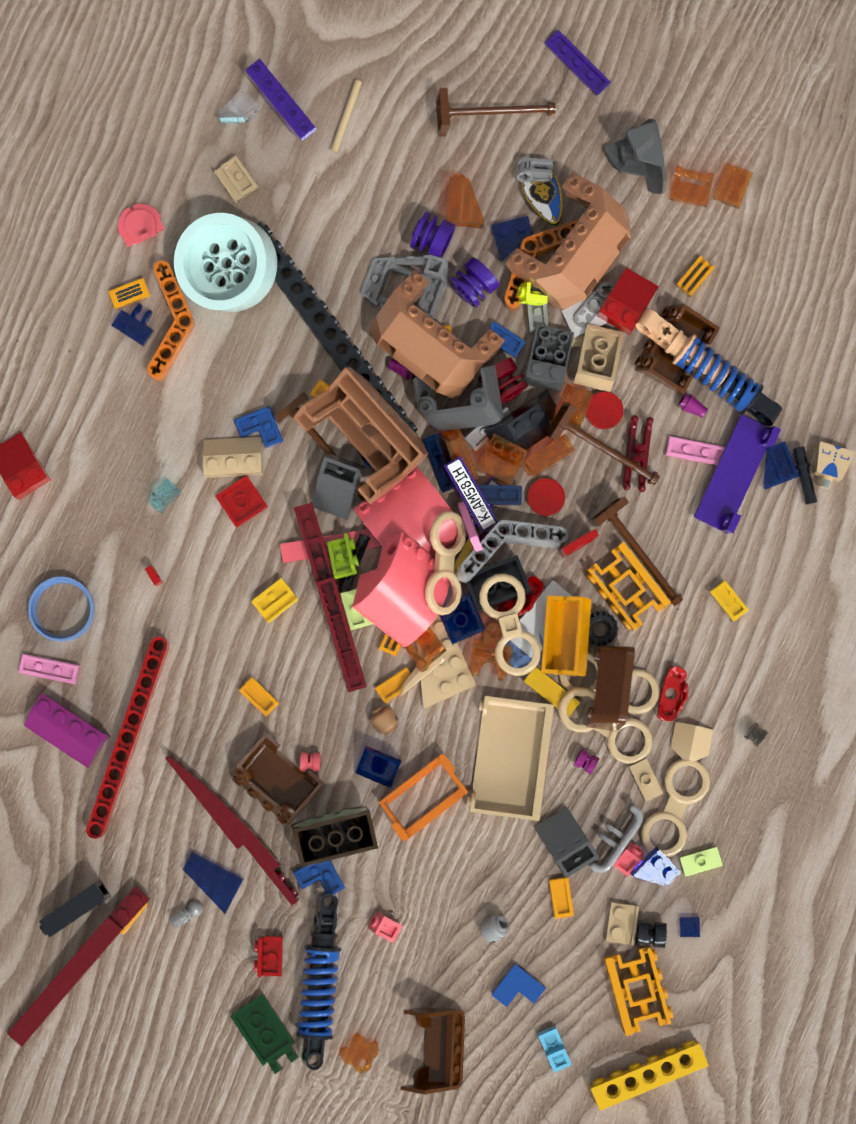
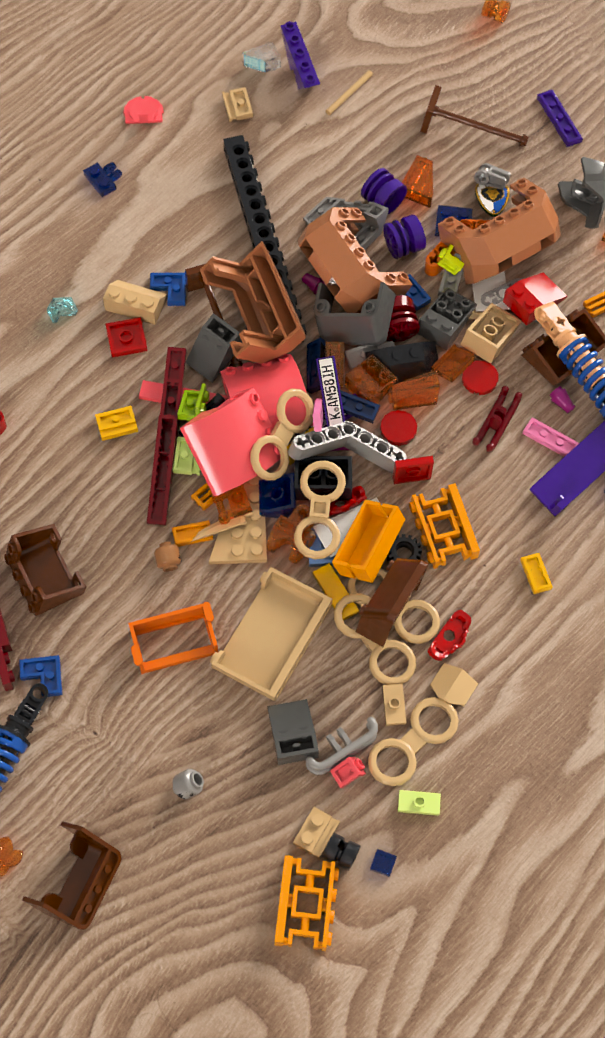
camera: 20 degrees right, 20 degrees down
(129, 293) = (110, 154): light orange tile -> none
(152, 573) = (20, 365): red tile -> none
(176, 327) = (134, 193): orange beam -> none
(196, 252) = (199, 149): light aqua wheel -> none
(259, 696) = (63, 496): light orange tile -> none
(315, 761) = (85, 568): coral wheel -> none
(334, 835) = (70, 632): dark brown brick -> none
(378, 766) = (144, 593): clear blue slope -> none
(384, 926) = (82, 743): coral bracket -> none
(518, 981) = (189, 848): blue tile -> none
(554, 1049) = (196, 931): medium azure slope -> none
(561, 897) = (266, 784): light orange tile -> none
(562, 422) = (437, 362): reddish brown tile -> none
(589, 765) = (343, 664): magenta wheel -> none
(610, 513) = (452, 454): reddish brown tile -> none
(656, 869) = (372, 788): clear blue wing -> none
(677, 1070) = (271, 1003): yellow brick -> none
(755, 734) = (518, 701): clear smoke wheel -> none

